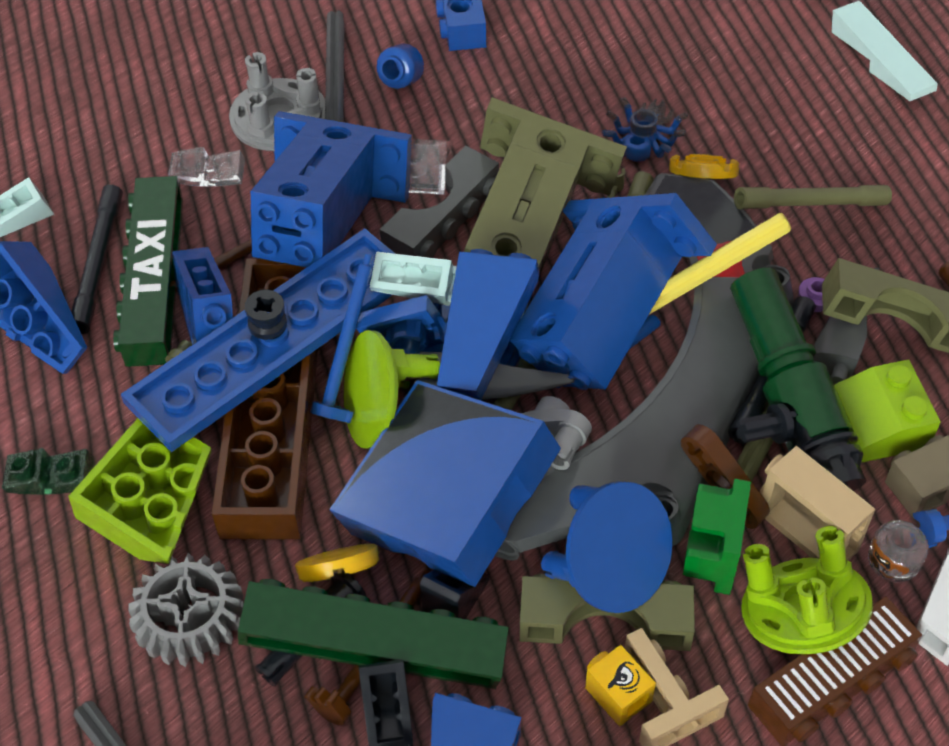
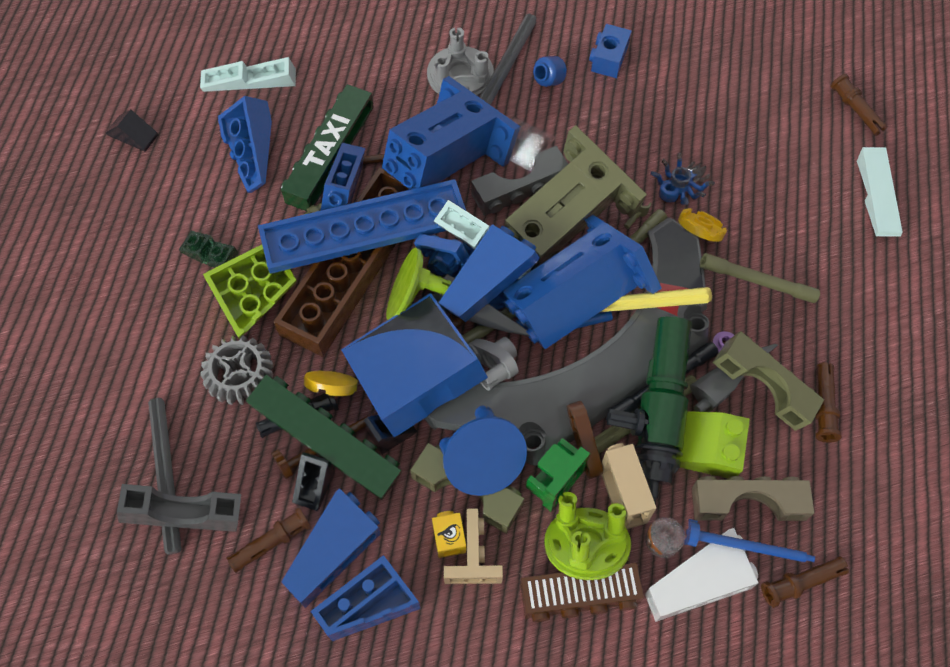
camera: 25 degrees right, 10 degrees up
(107, 212) = (281, 152): black piece -> none
(199, 169) = (393, 92): clear slope -> none
(264, 324) = (357, 215): black wheel -> none
(327, 407) = (379, 283): blue piece -> none

